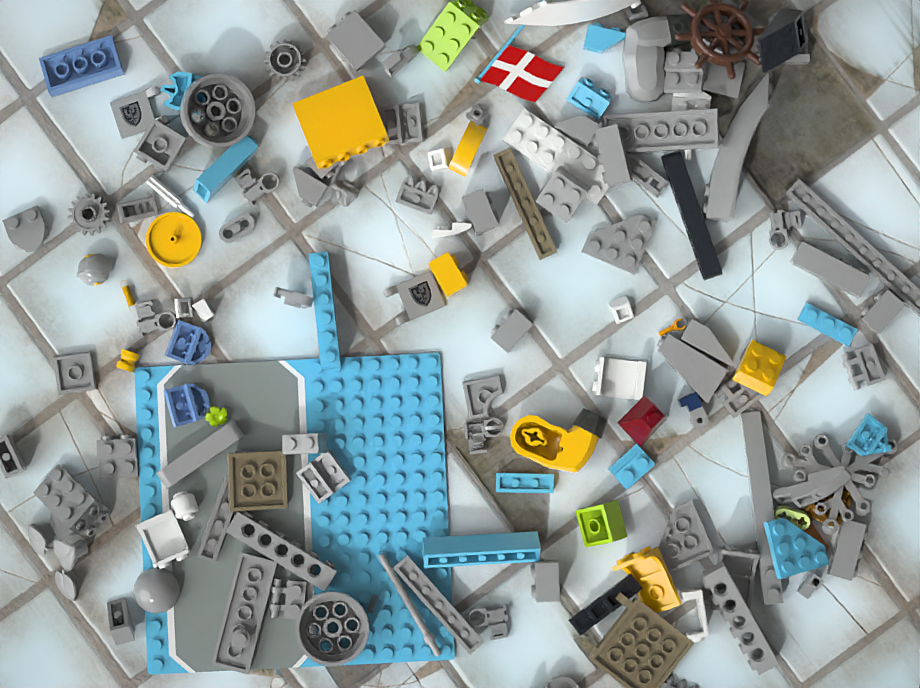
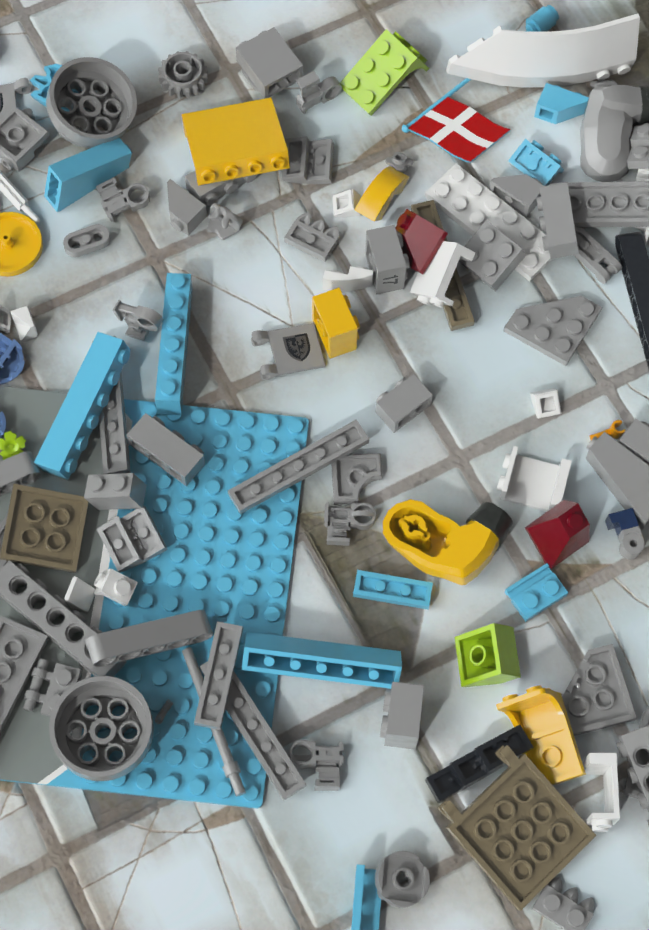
camera: 10 degrees right, 20 degrees down
(266, 377) = (83, 406): none -> medium azure brick
(286, 370) = (114, 433): none -> light grey plate
(294, 526) = (79, 595): none -> white slope
(318, 516) = (115, 586): none -> white bracket
(336, 401) = (166, 448): none -> light grey brick
(353, 556) = (148, 638): none -> light grey beam
(408, 574) = (218, 675): none -> light grey plate
(439, 398) = (298, 466): none -> light grey plate
(505, 193) = (420, 239): none -> slope
(523, 219) = (435, 280): none -> white panel

